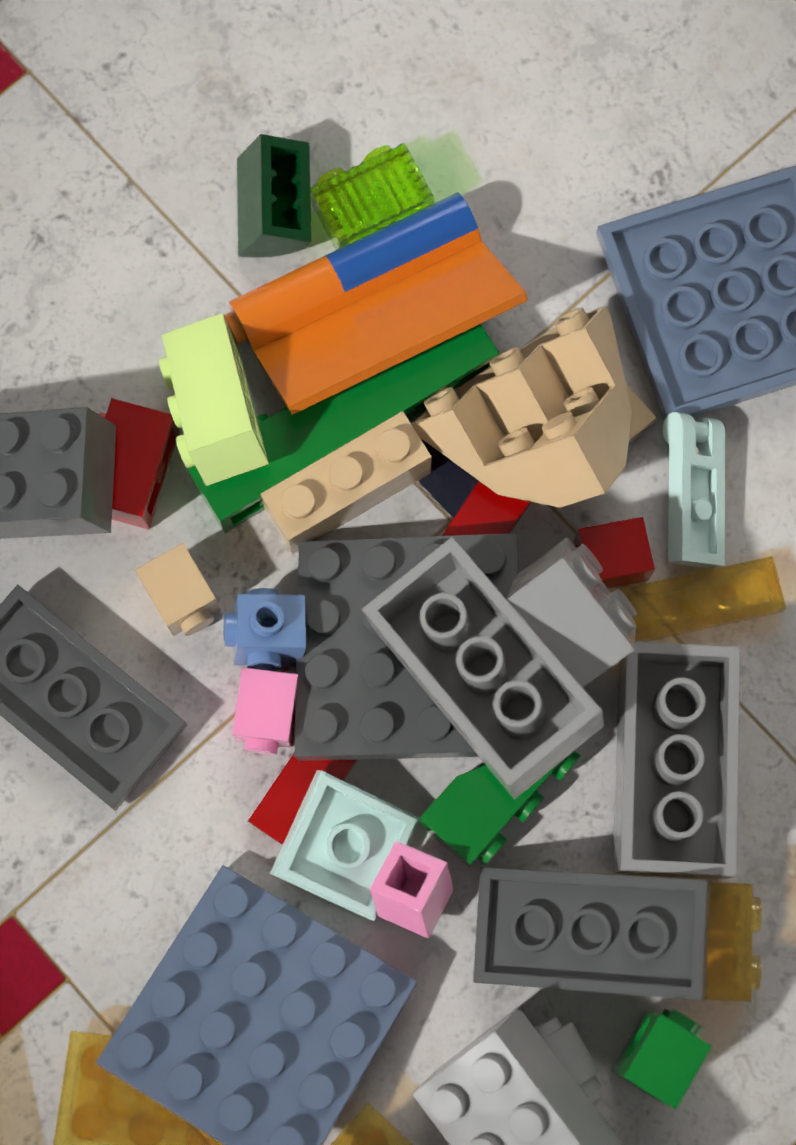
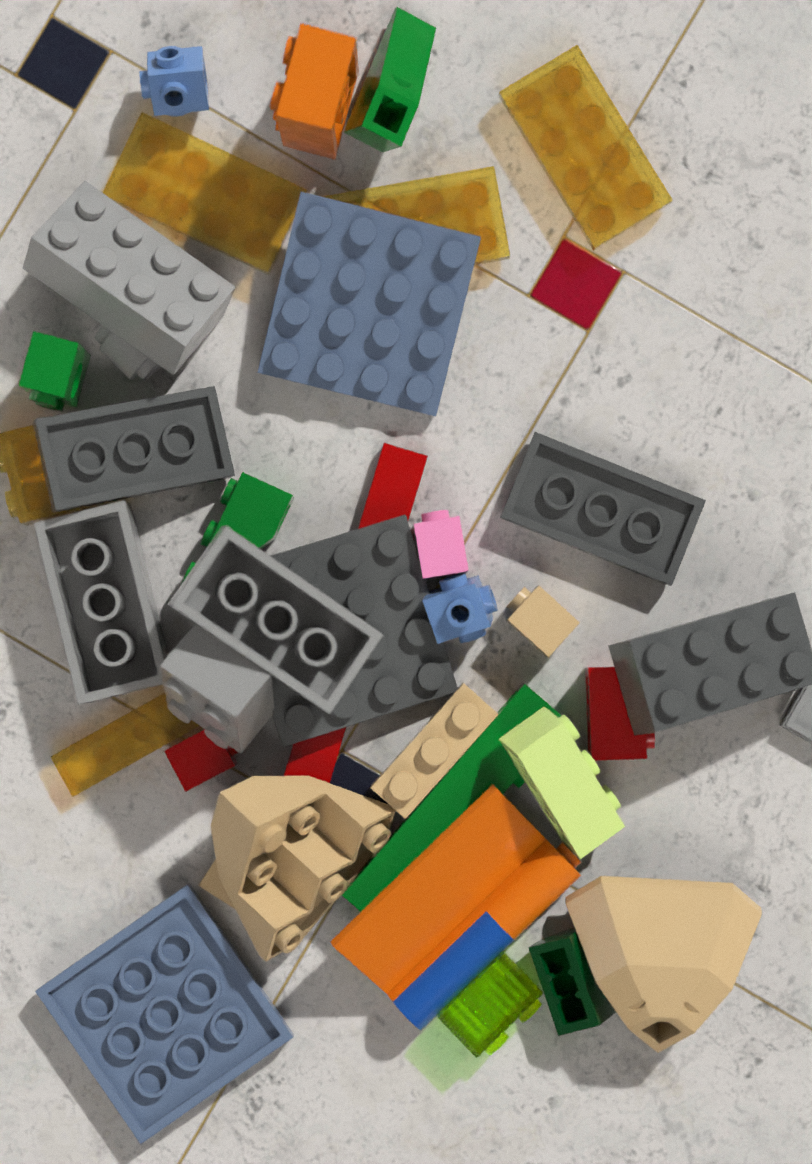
camera: 160 degrees right, 10 degrees up
(164, 194) = (663, 949): none -> tan brick
(341, 843) = (345, 459): light aqua plate -> none
(412, 889) = (282, 439): bright pink brick -> none
(696, 490) = (149, 832): light aqua plate -> none

